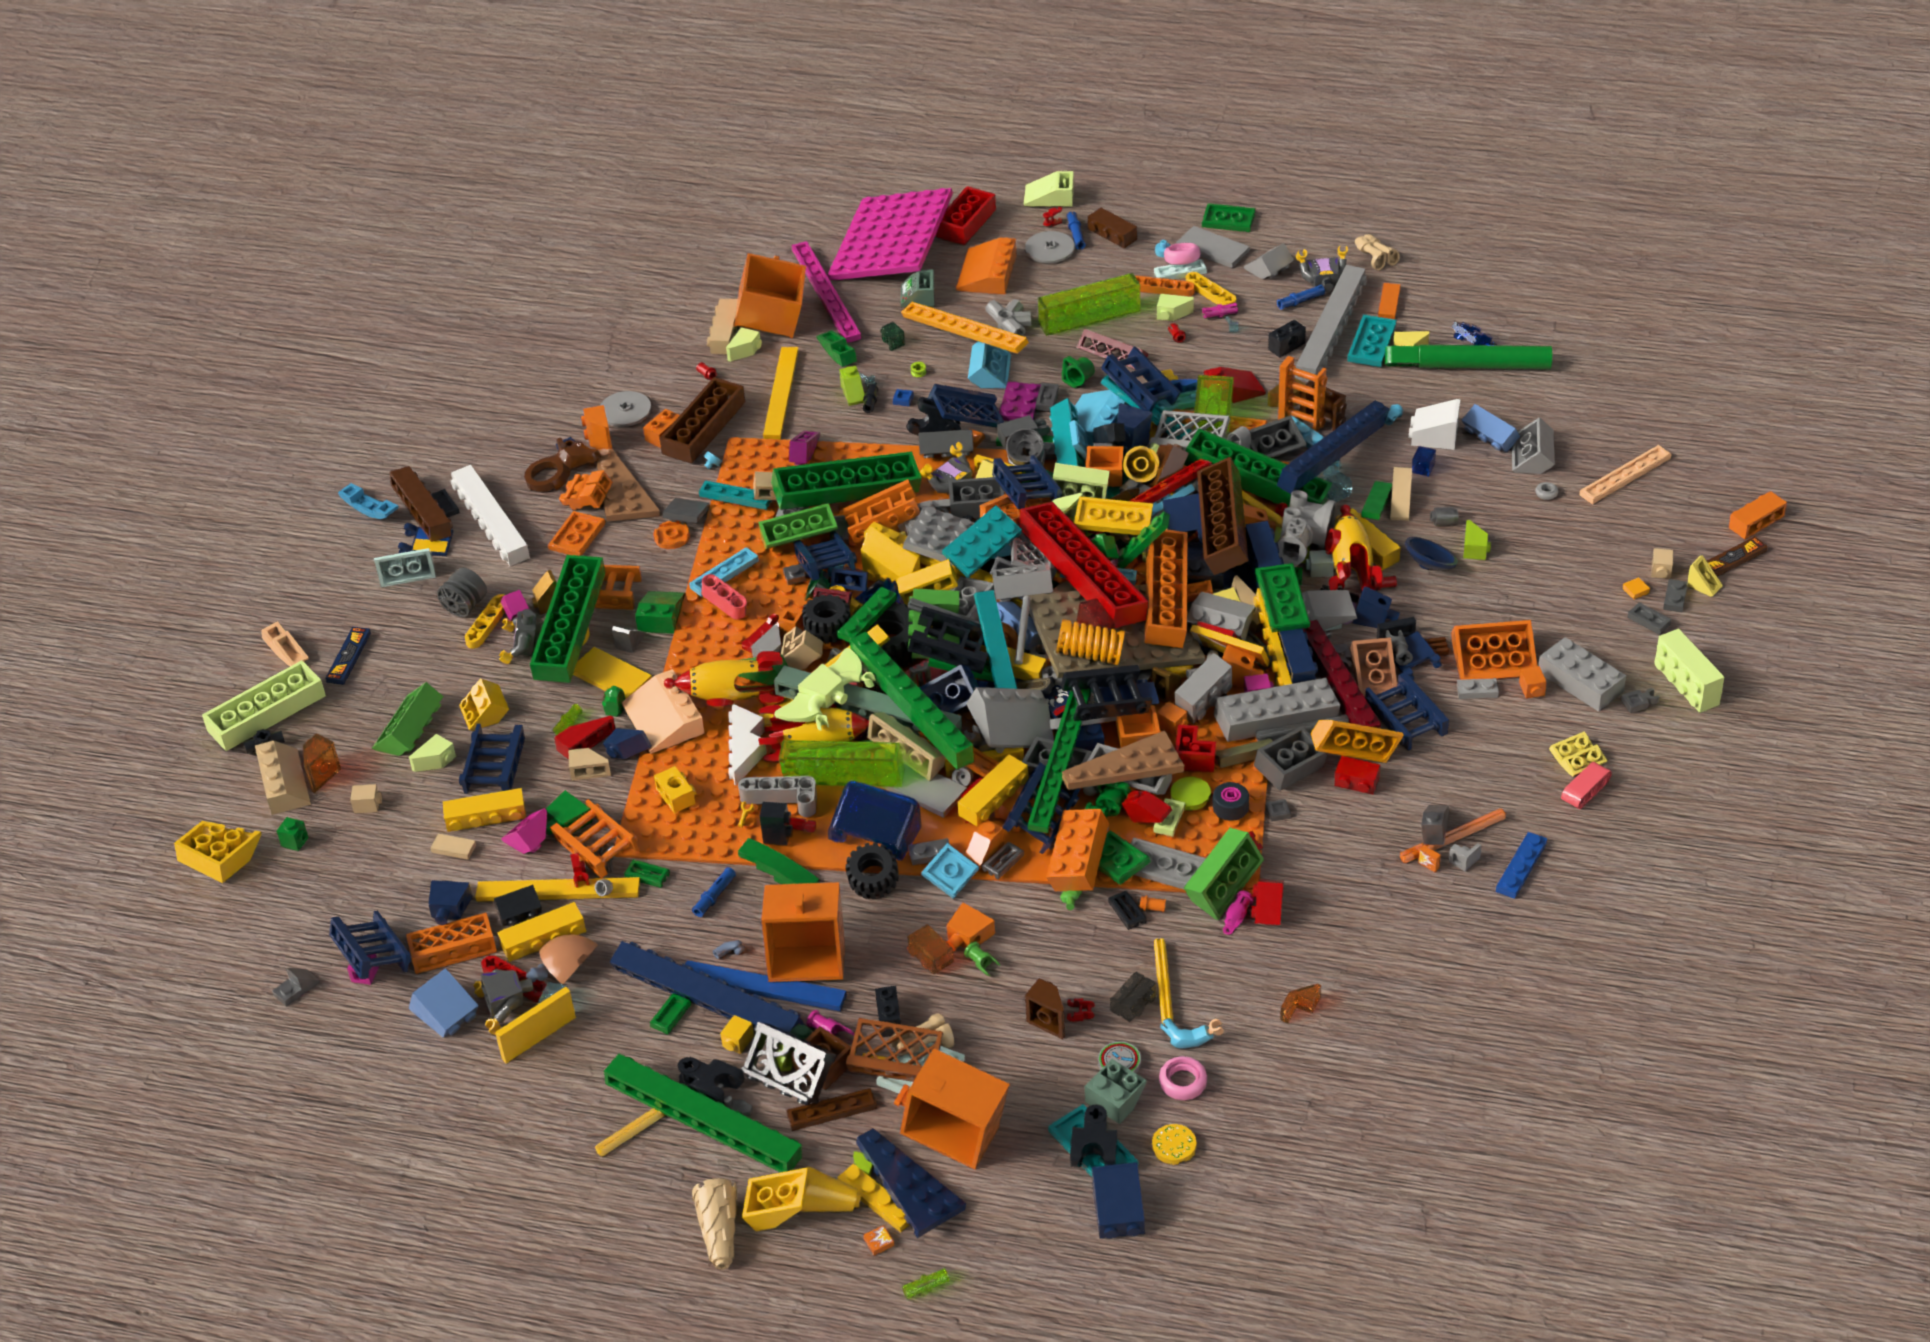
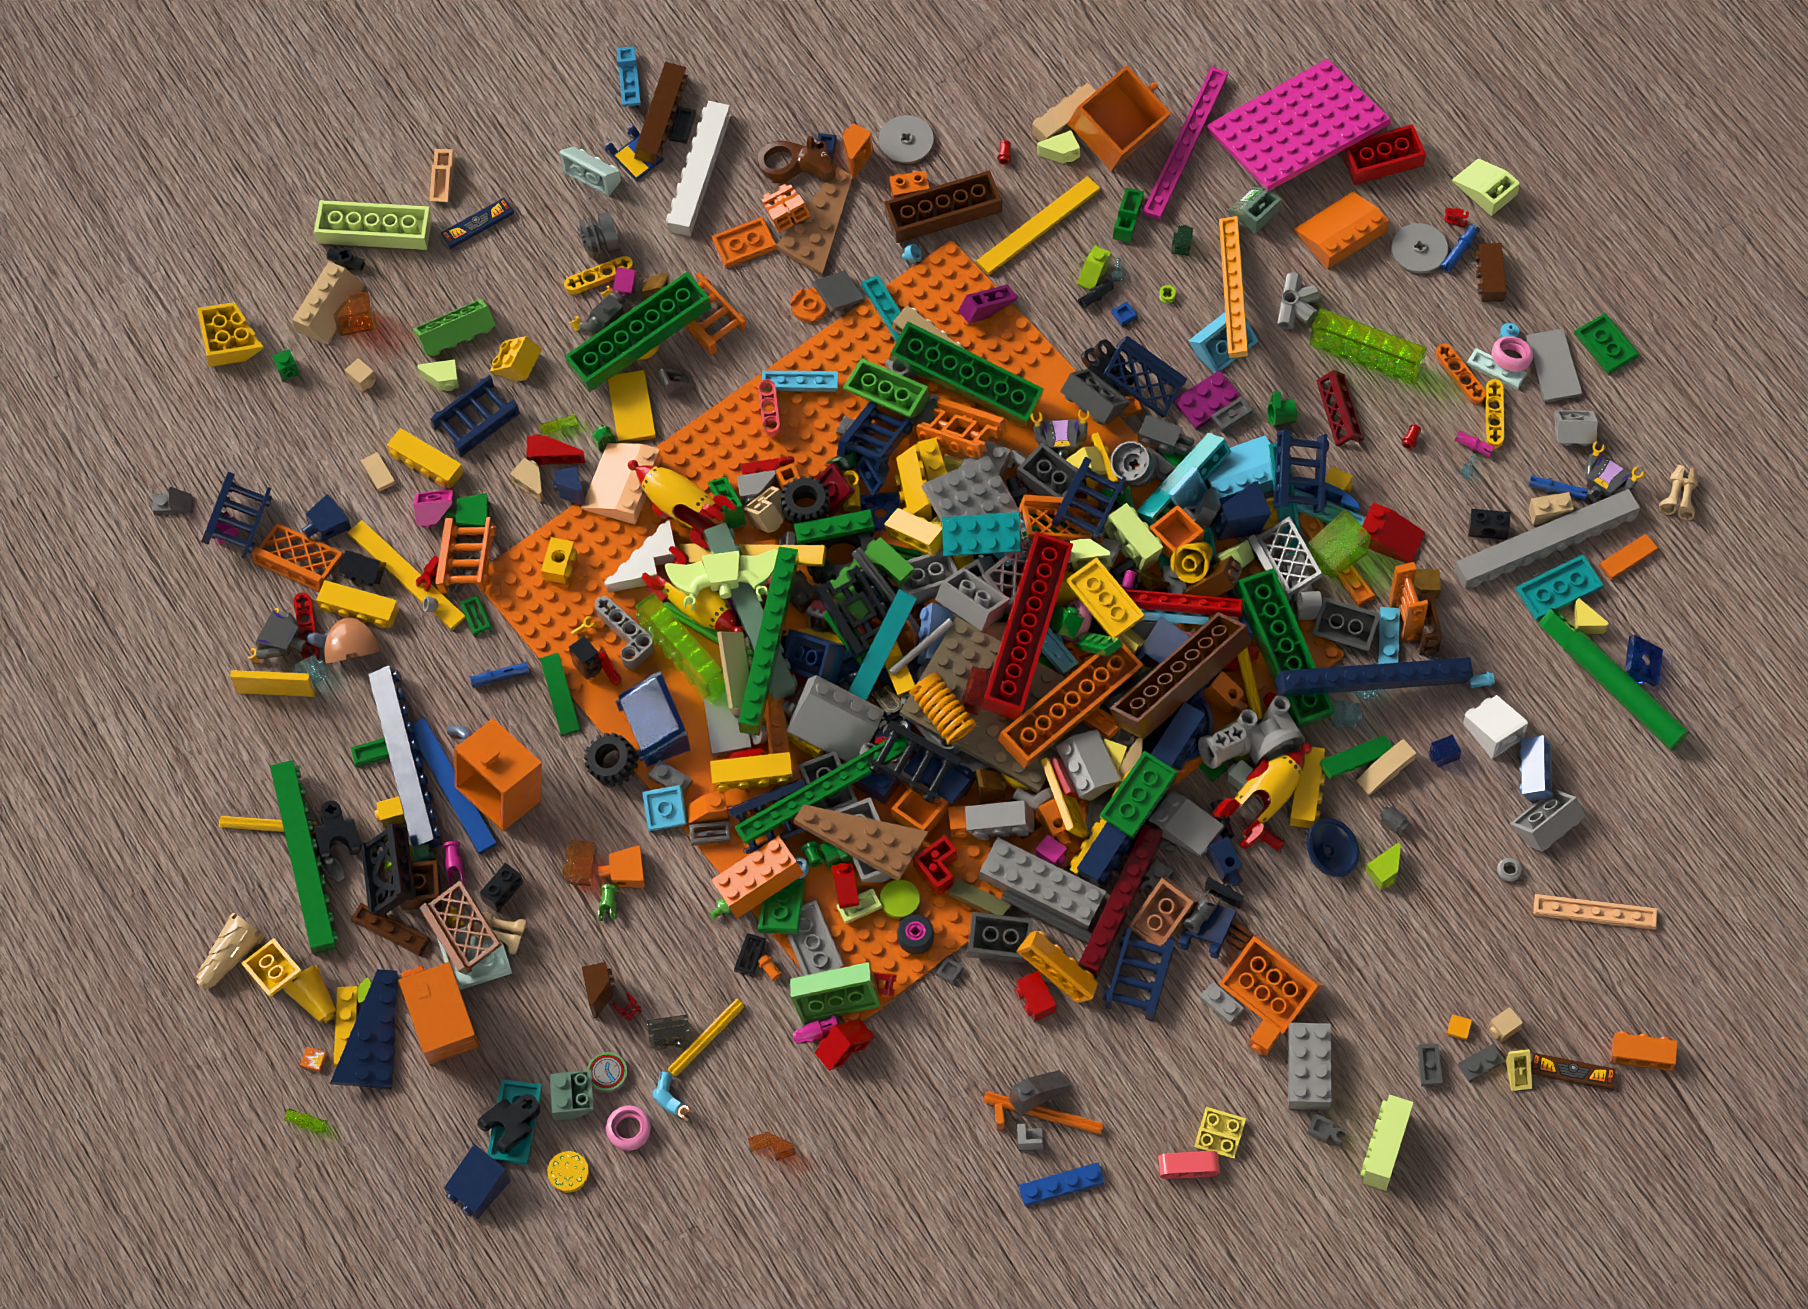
camera: 45 degrees right, 20 degrees up
(443, 1004) = (238, 610): medium blue slope -> none
(659, 612) = (723, 374): green slope -> none
(1174, 307) = (1438, 406): yellowish green slope -> none
(1311, 307) = (1550, 508): none -> tan brick

